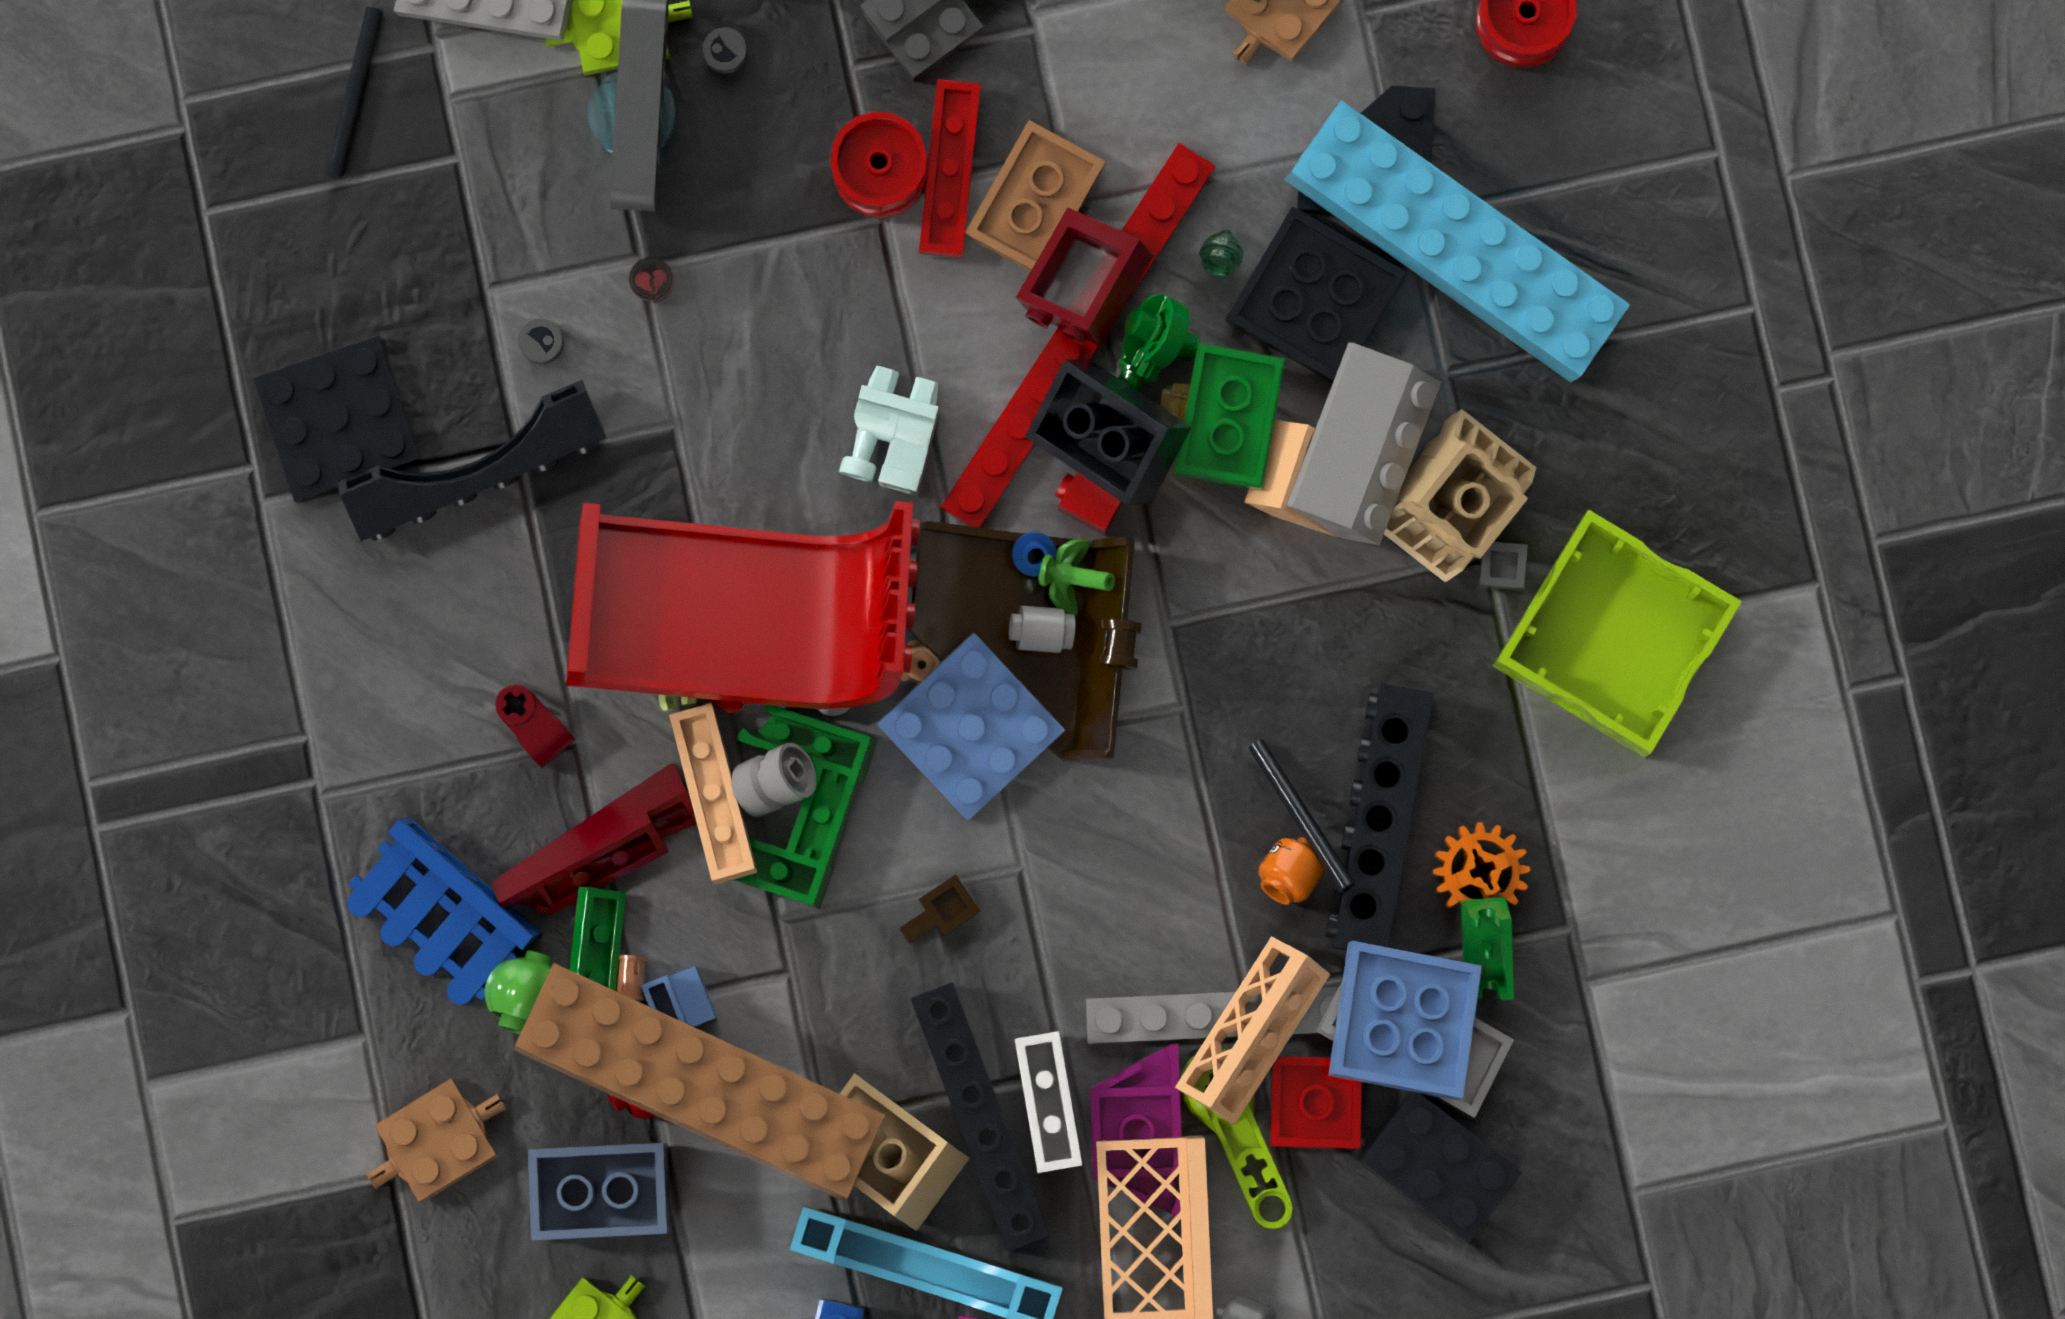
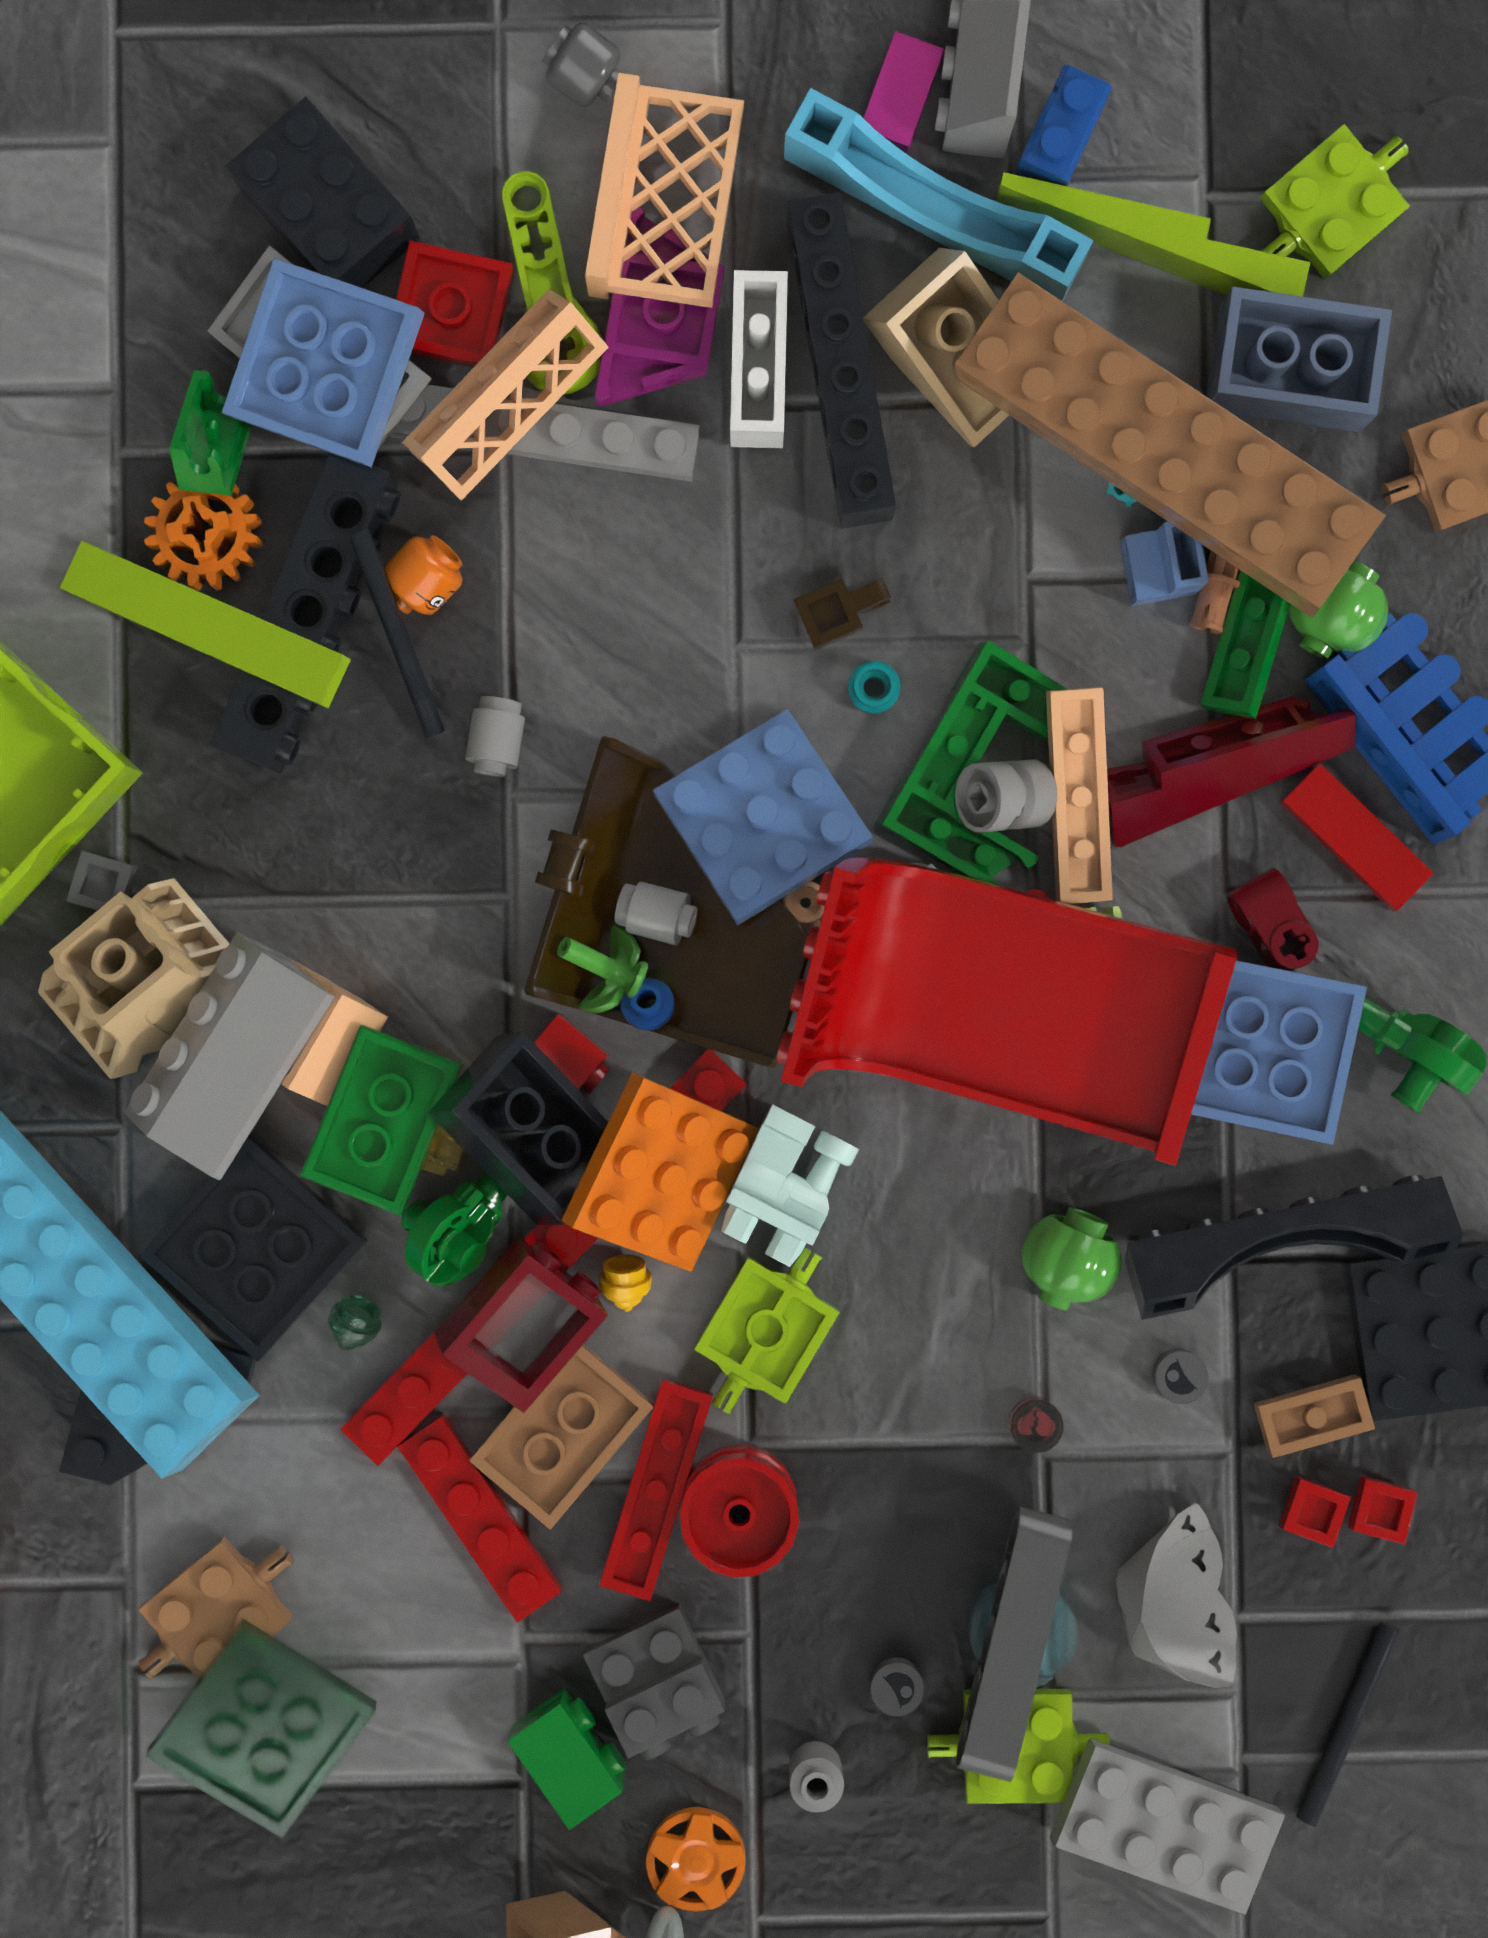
camera: 170 degrees left, 5 degrees up
(358, 266) = (1382, 1509): none -> red plate
(391, 646) = (1432, 1047): none -> green pin
(413, 254) = (1314, 1511): none -> red plate
(427, 330) = (1314, 1416): none -> medium nougat plate
(475, 808) = (1356, 837): none -> red tile
(511, 616) = (1281, 1052): none -> medium blue plate
(515, 161) = (1171, 1600): none -> light grey piece
(648, 418) = (1071, 1258): none -> bright green plant
(724, 1275) = (1157, 237): none -> lime slope
(885, 312) = (766, 1330): none -> lime plate
(892, 841) = (881, 672): none -> teal plate
(995, 418) = (660, 1173): none -> orange plate
(1008, 329) = (625, 1280): none -> yellow plate
(1088, 118) = (480, 1518): none -> red plate
(1204, 749) = (495, 736): none -> light grey brick
(1460, 790) = (205, 624): none -> lime tile

